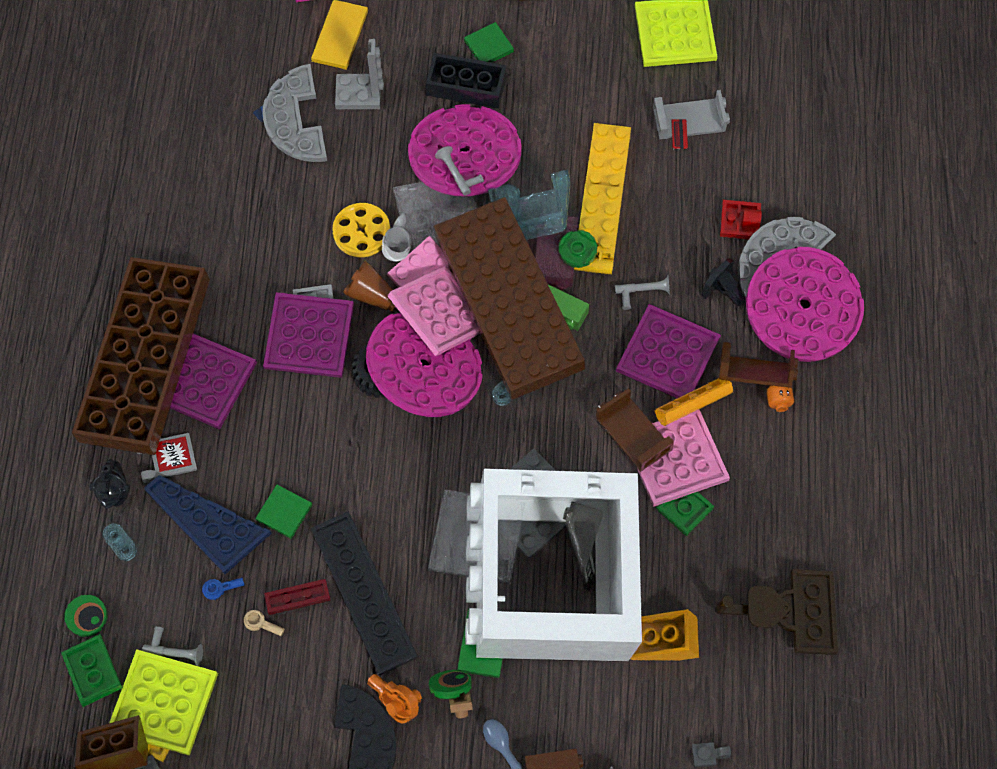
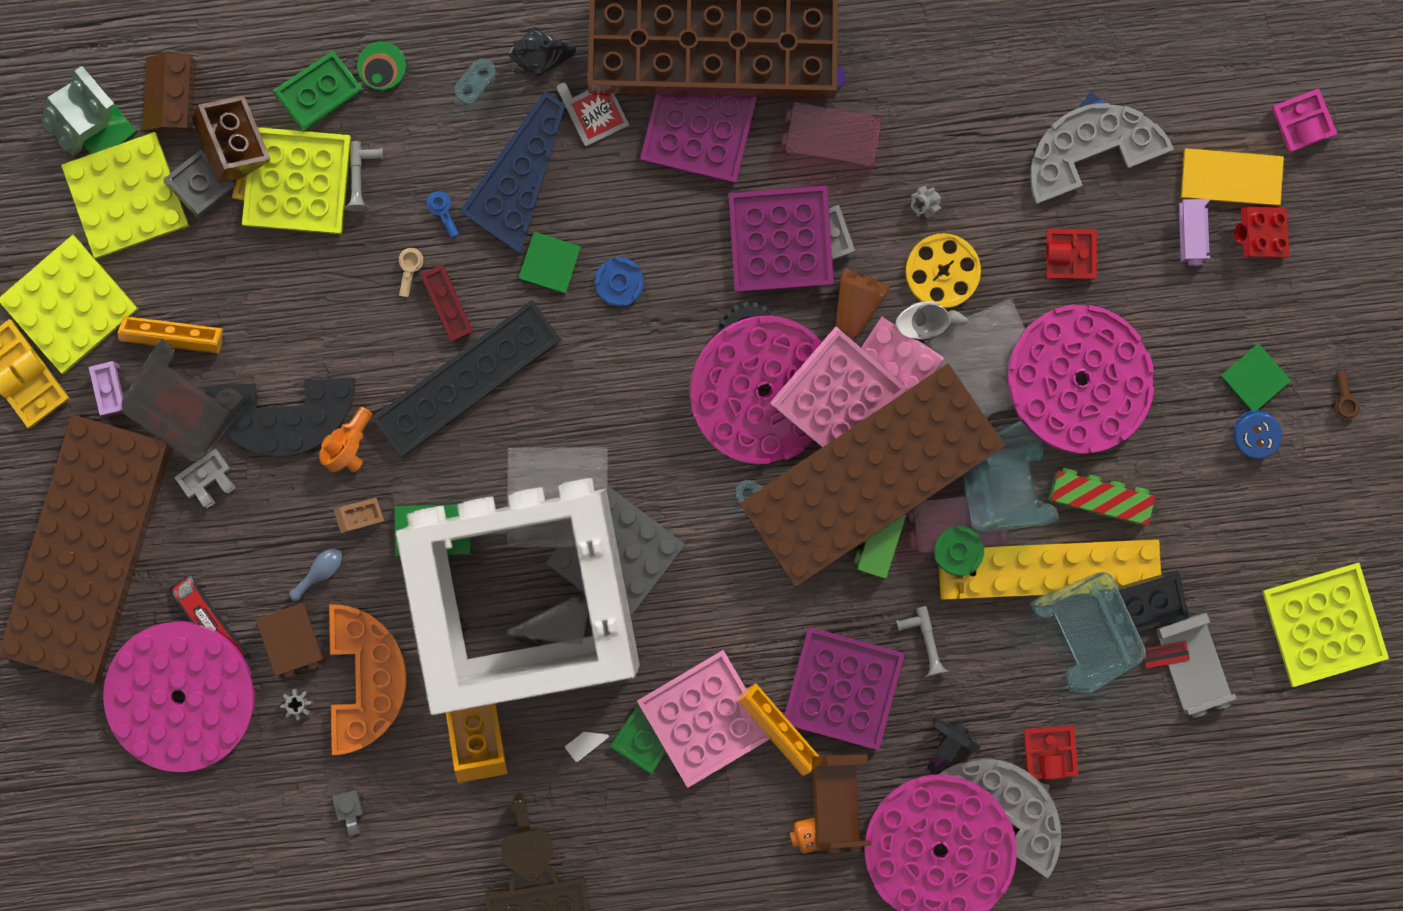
camera: 75 degrees right, 20 degrees up
(236, 285) = (832, 134): none -> clear pink panel
(302, 227) = (925, 202): none -> light grey gear
(312, 462) = (619, 282): none -> blue tile
(359, 62) = (1194, 231): none -> lavender window
(361, 90) = (1149, 222): light grey bracket -> none
(370, 143) = (1071, 254): none -> red plate
(385, 16) = (1263, 232): none -> red plate
(445, 154) = (1018, 388): light grey piece -> none
(450, 684) = (372, 501): green tile -> none
(466, 80) = (1186, 359): black brick -> none
(530, 47) = (1257, 434): none -> blue head
(556, 152) = (1102, 498): none -> brick
(599, 708) = (379, 678): none -> orange plate
(633, 430) = (725, 661): reddish brown panel -> none
(640, 137) = (1155, 601): none -> black tile
(655, 171) = (1095, 629): none -> clear light blue windscreen
(682, 555) = (584, 744): none -> white sticker

